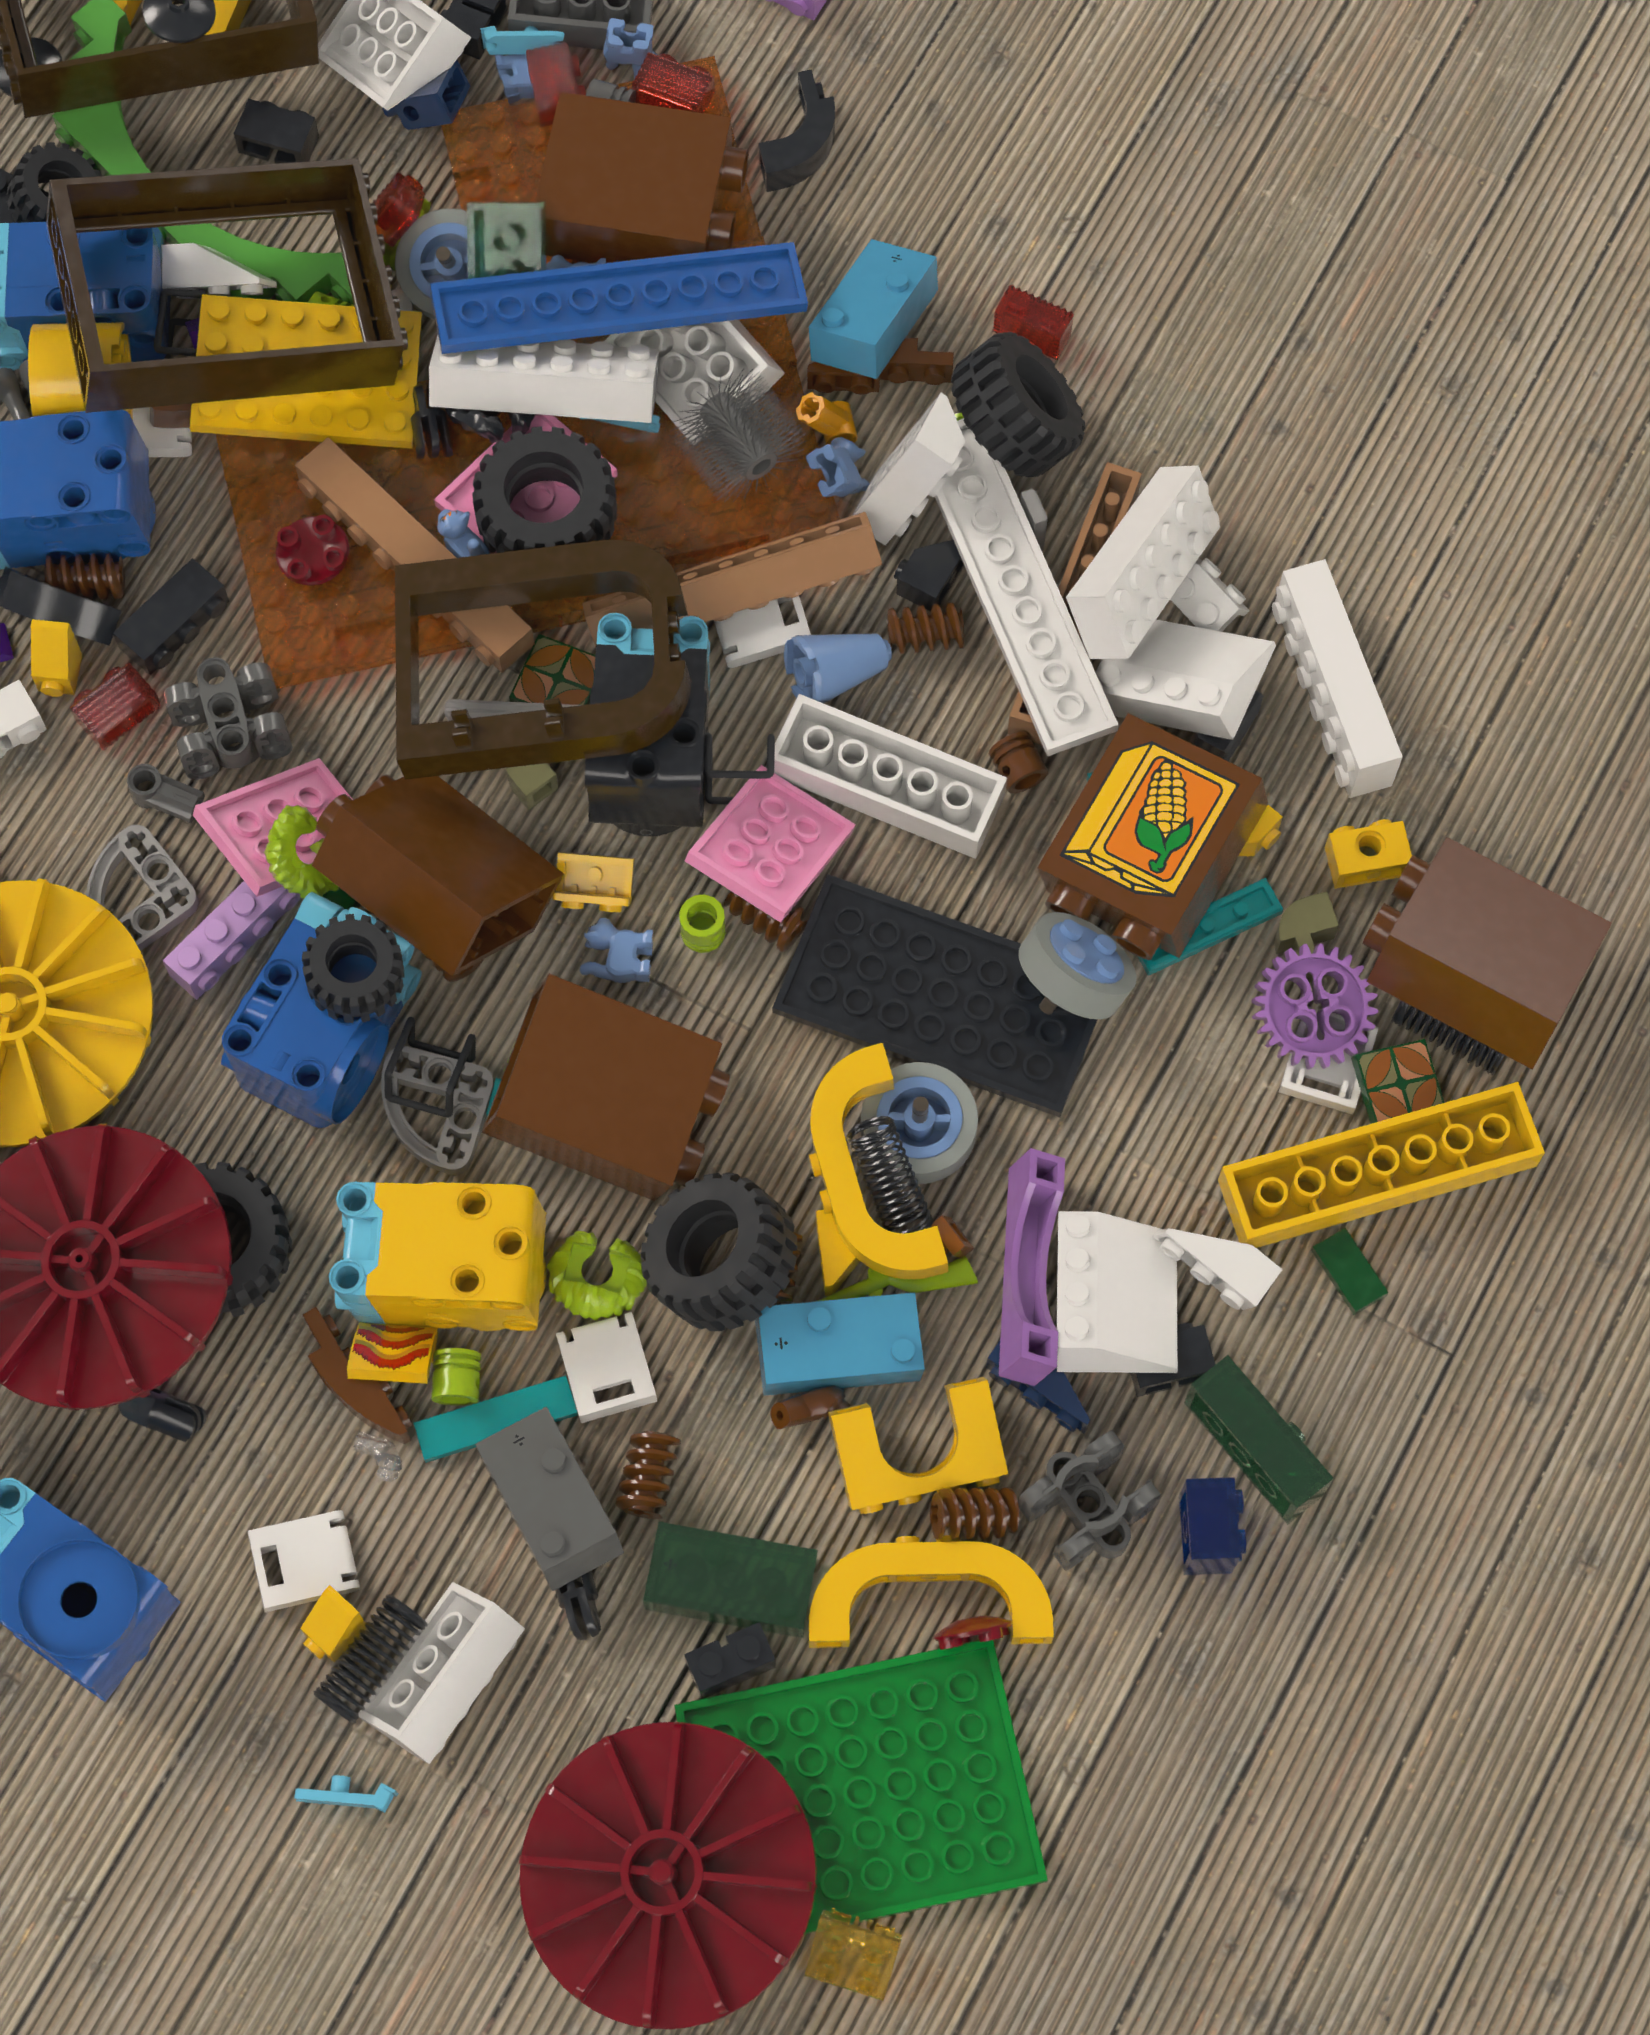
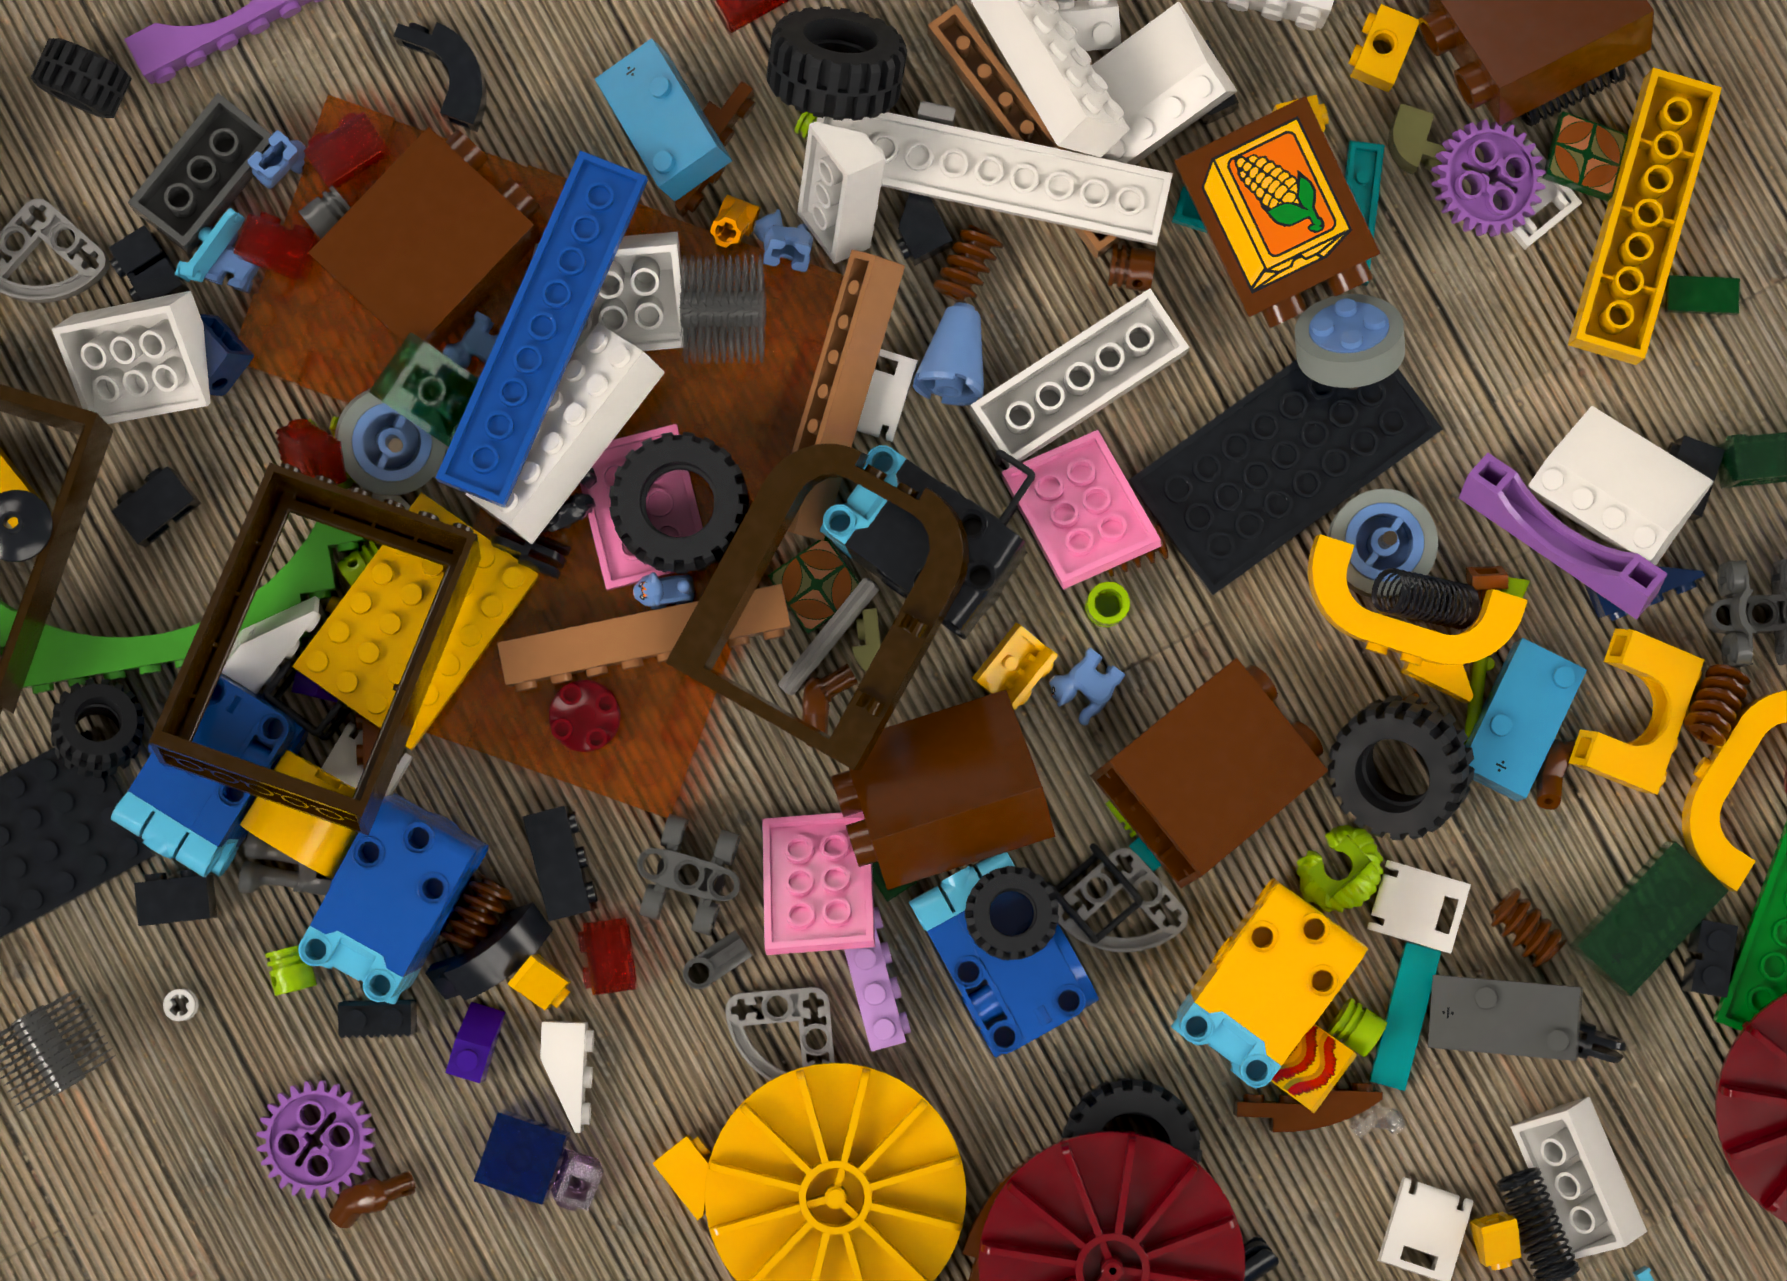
camera: 55 degrees left, 15 degrees up
(282, 854) = (863, 908): lime piece -> none
(1230, 1266) = (1646, 383): white slope -> none

